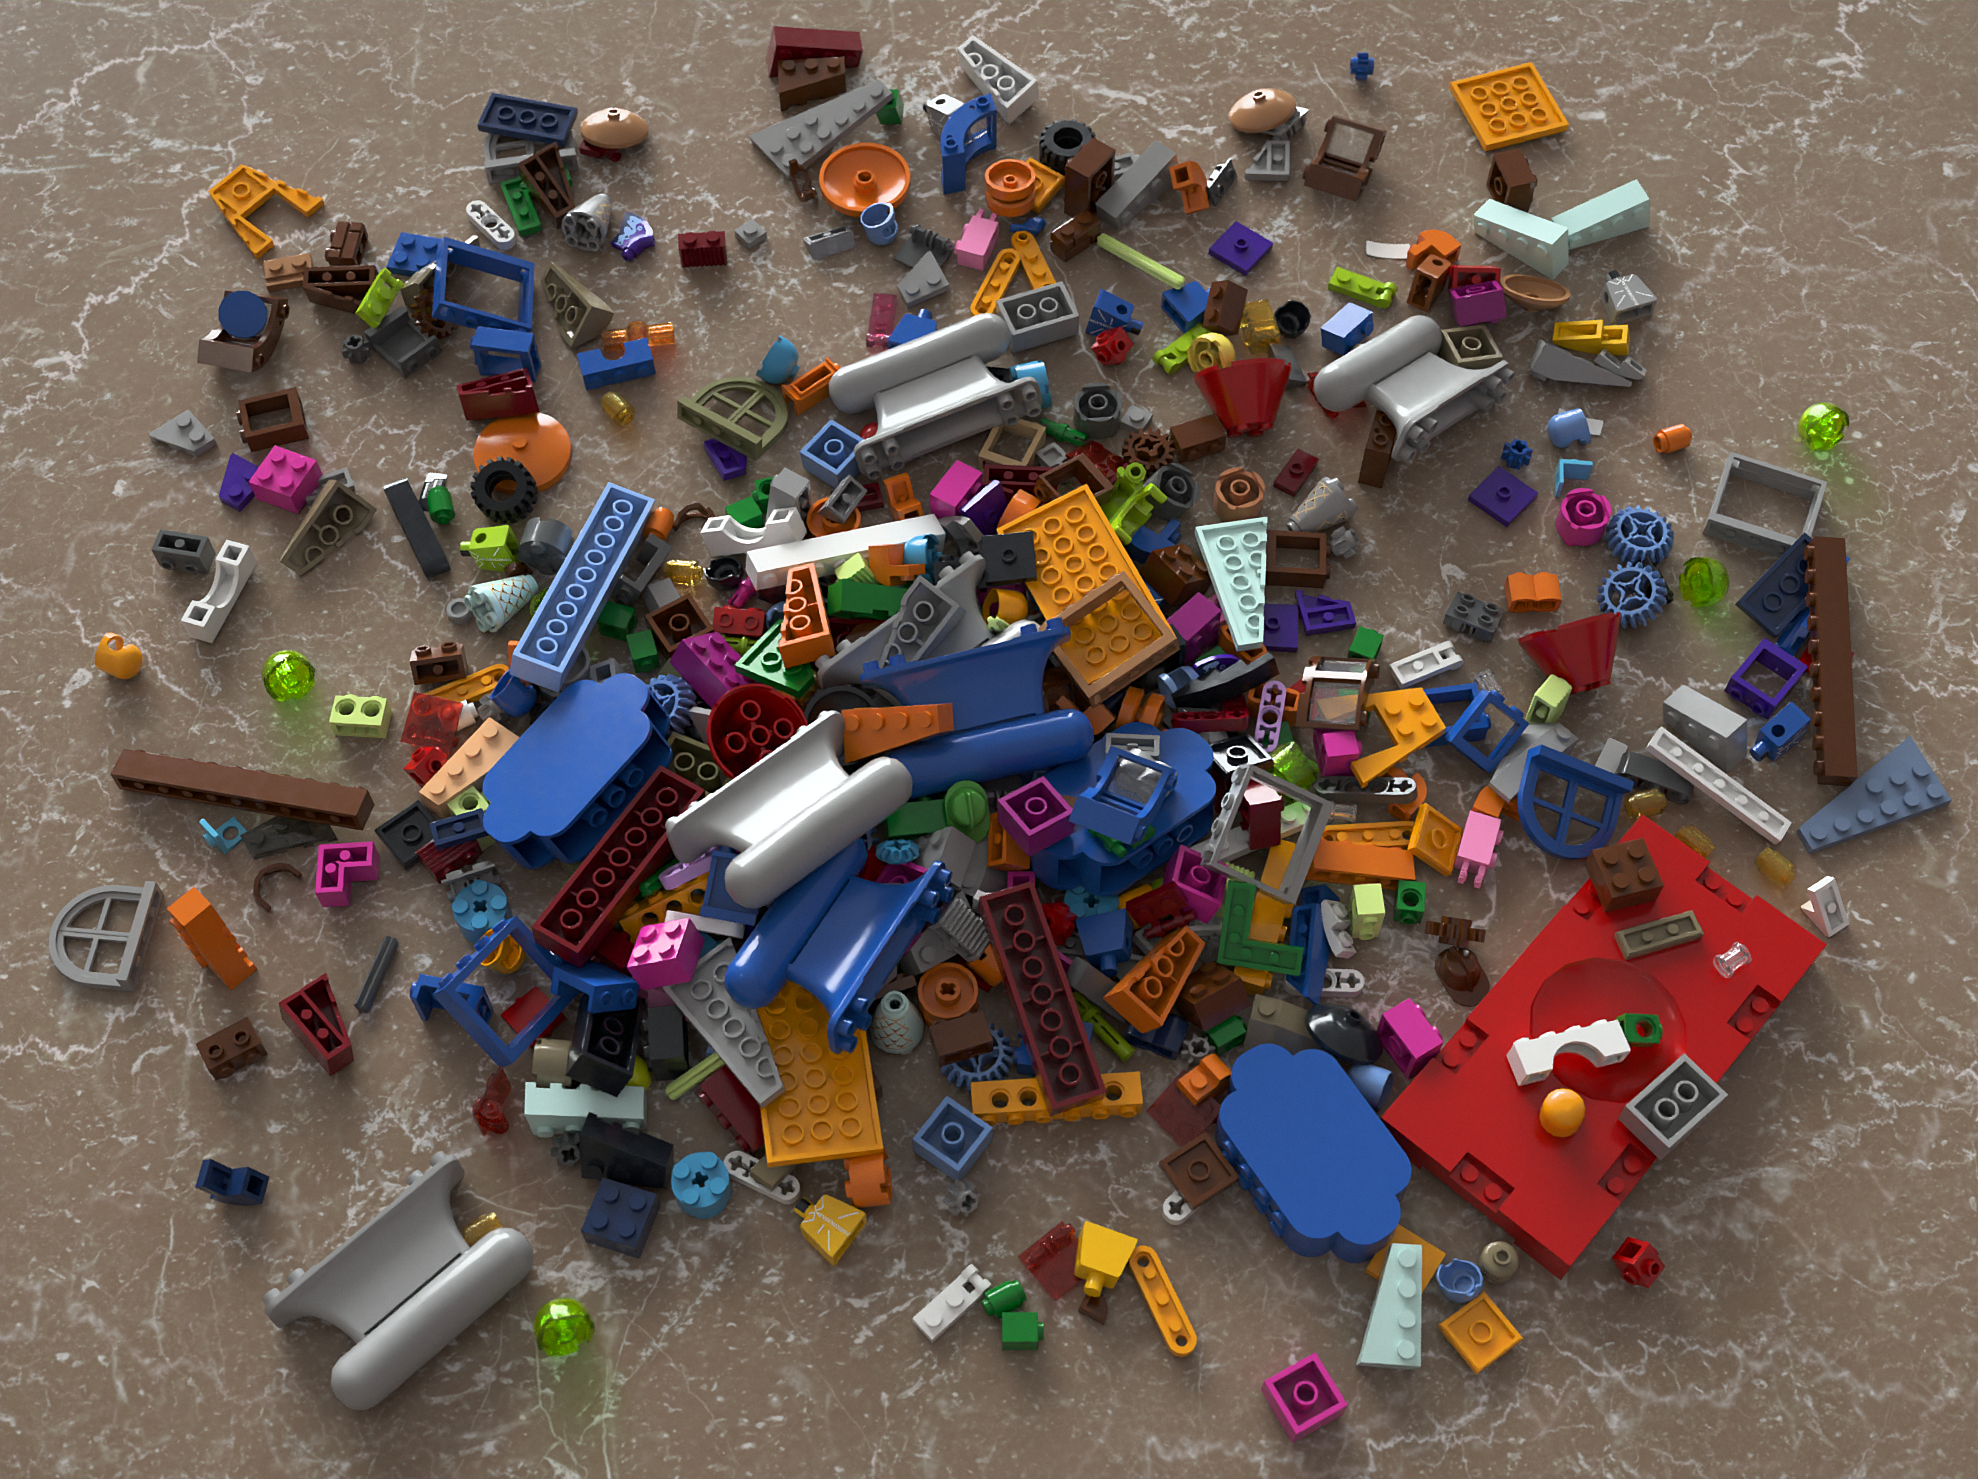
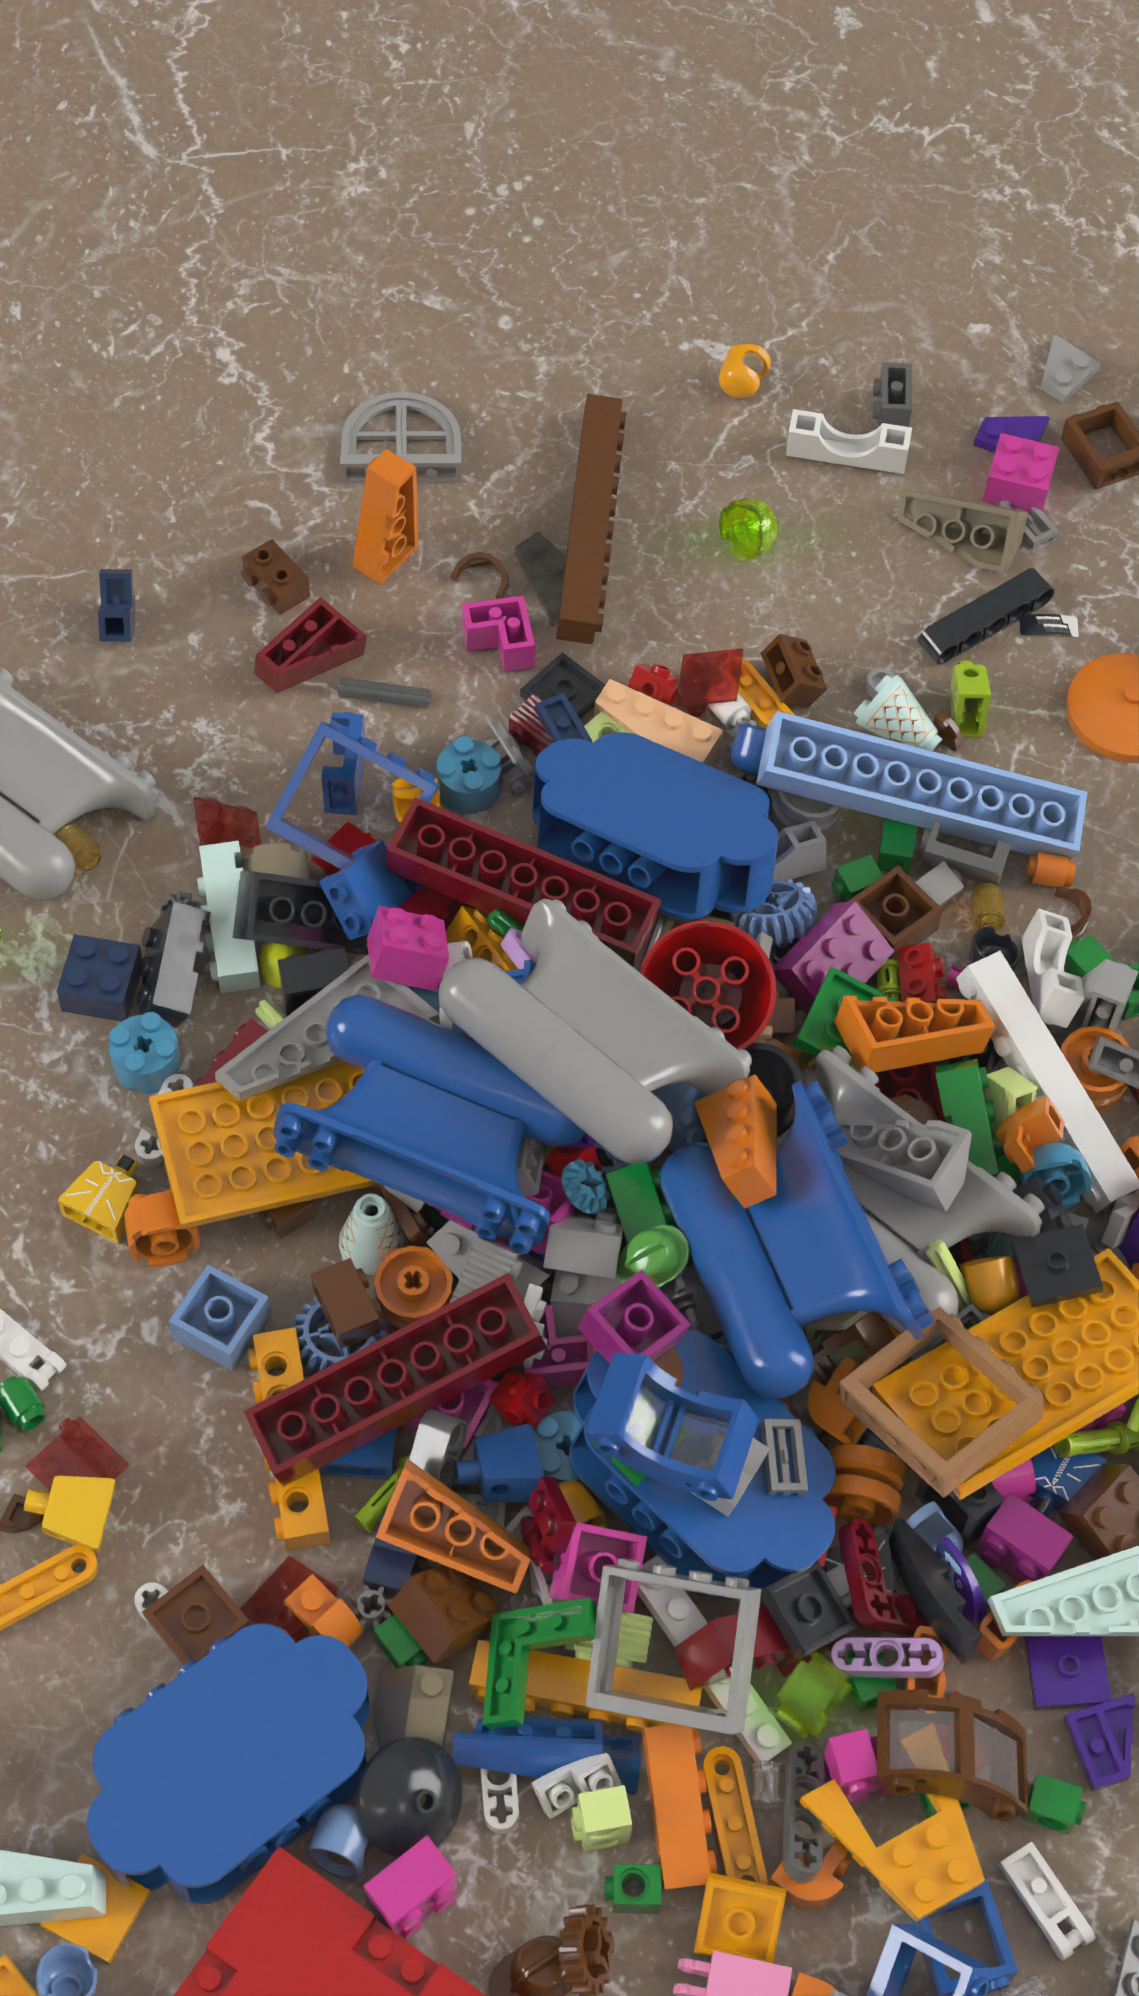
camera: 80 degrees right, 0 degrees up
(216, 837) = (531, 512): medium azure bracket -> none
(360, 722) = (711, 611): yellowish green brick -> none
(440, 505) = (1024, 633): green brick -> none
(492, 475) = (1054, 669): black tyre -> none
(545, 544) = (986, 741): dark grey brick -> none
(961, 1197) = (147, 1339): light grey gear -> none

